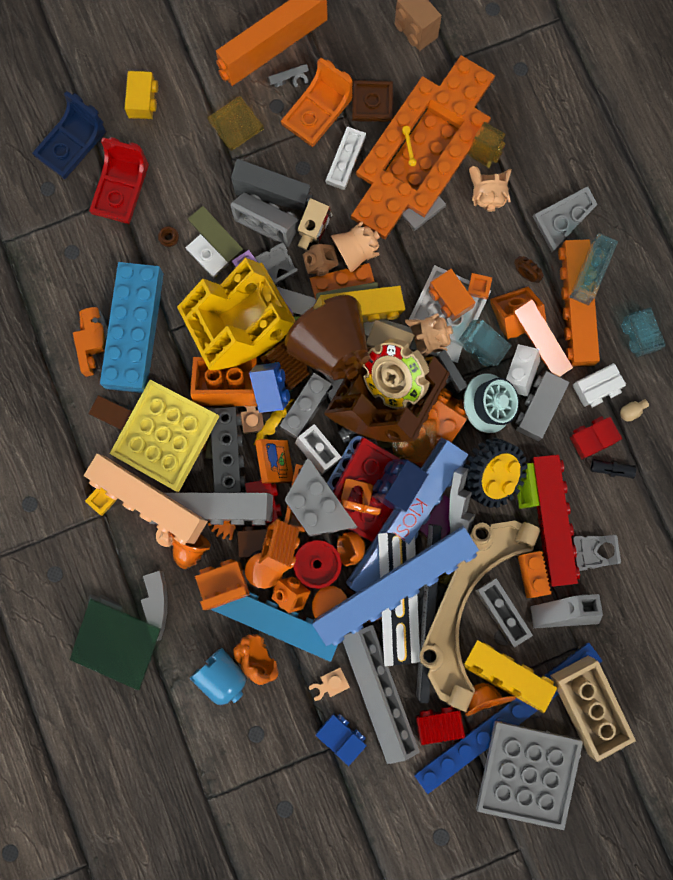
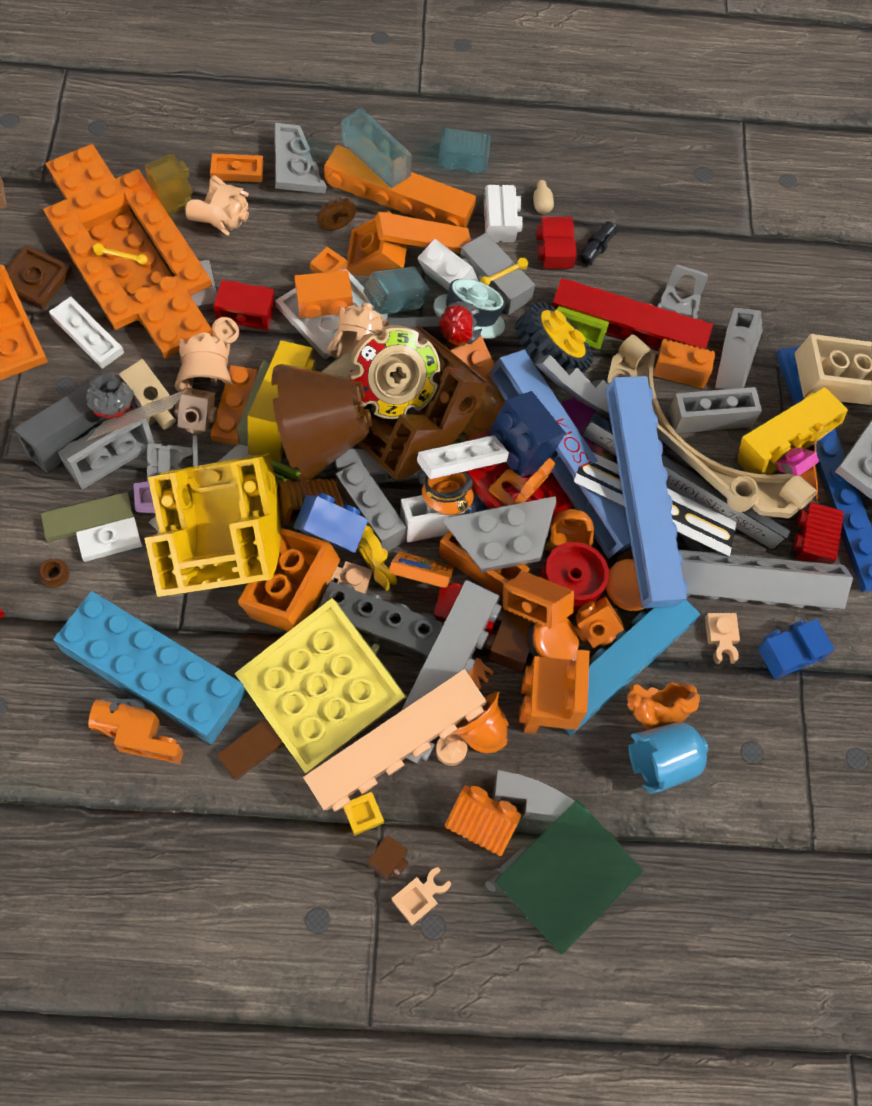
camera: 75 degrees left, 15 degrees down
(64, 557) = (417, 899): none -> light nougat plate
(79, 529) = (389, 858): none -> reddish brown plate
(126, 575) = (483, 819): none -> orange brick
(285, 226) = (137, 414): none -> sticker
(291, 201) = (107, 397): none -> dark grey piece
(333, 452) = (449, 493): none -> orange piece
(358, 450) = (462, 457): none -> white plate
(393, 245) = (225, 329): none -> light nougat tile
(421, 246) = (245, 304): none -> red brick
(461, 399) = (458, 323): none -> red piece
(482, 689) = (797, 461): none -> dark pink plate
(535, 181) = (237, 167): none -> orange plate
(553, 420) = (522, 264): none -> yellow hinge

